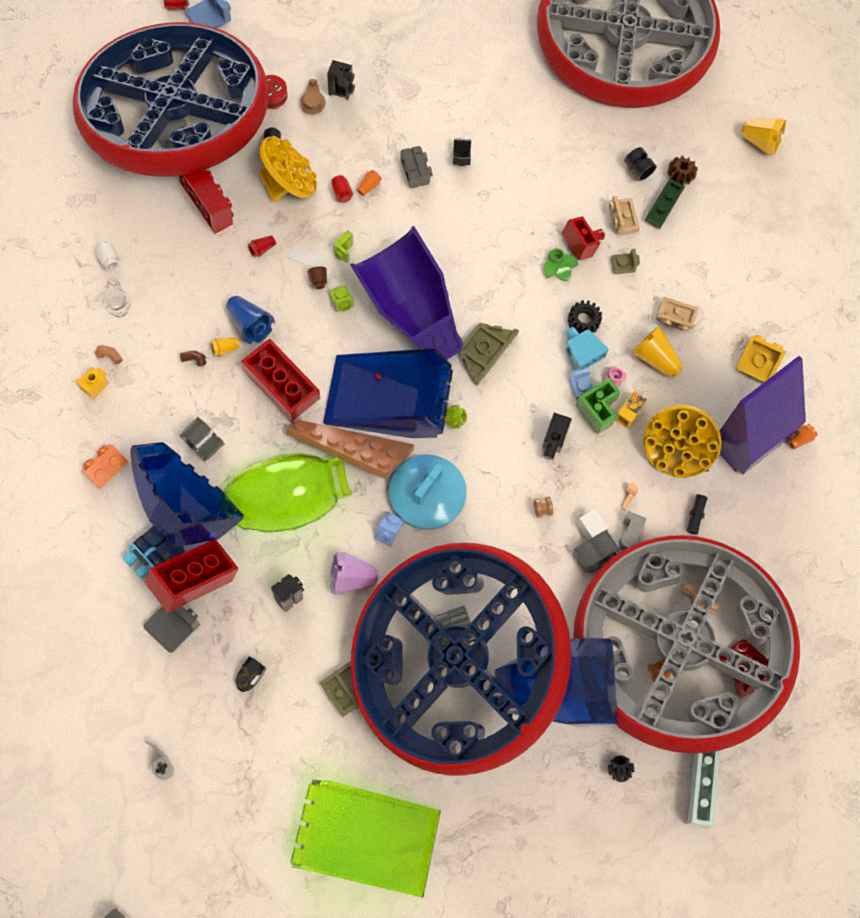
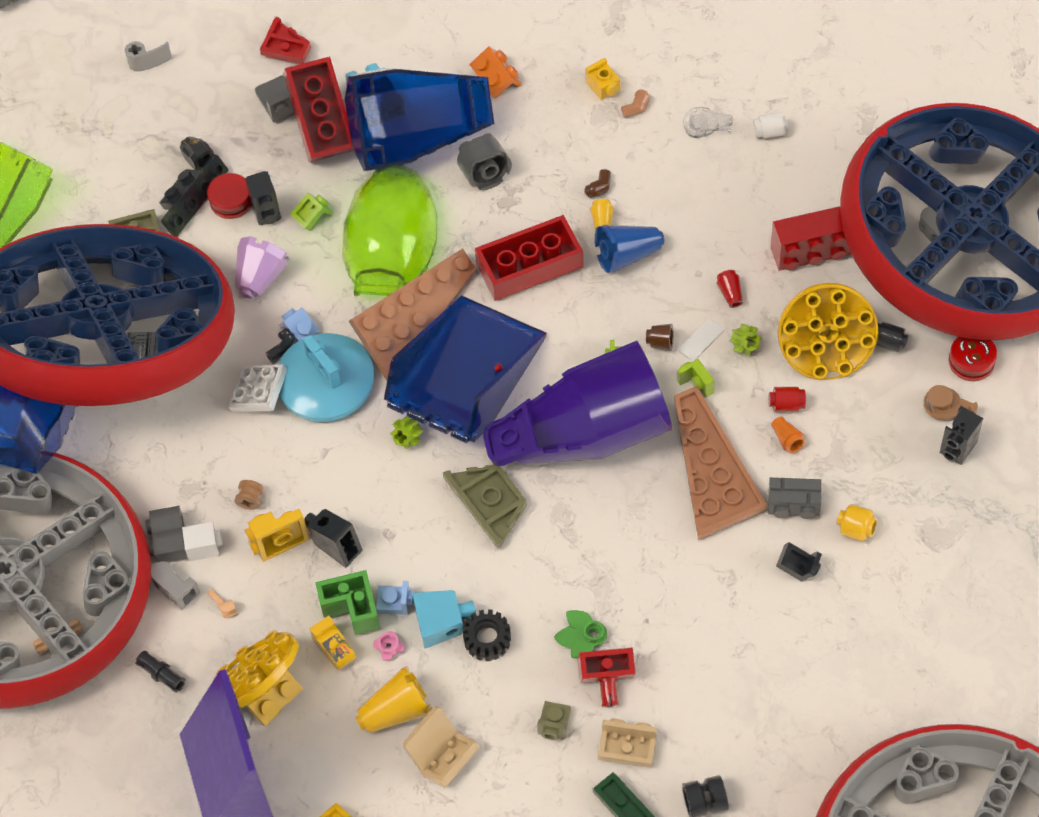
camera: 120 degrees right, 10 degrees down
(115, 645) = (285, 43): none -> red wing
(282, 557) = (310, 210): none -> lime bracket
(286, 627) = (229, 196): none -> red head
(292, 664) = (189, 194): none -> black bracket
(303, 223) = (745, 339): none -> lime gear
(407, 530) = (279, 350): none -> black arm
(422, 127) = (857, 522): none -> yellow head
(424, 209) = (717, 479): none -> nougat wing
(455, 529) = (258, 388): none -> white tile
(575, 472) = (275, 536): none -> yellow plate

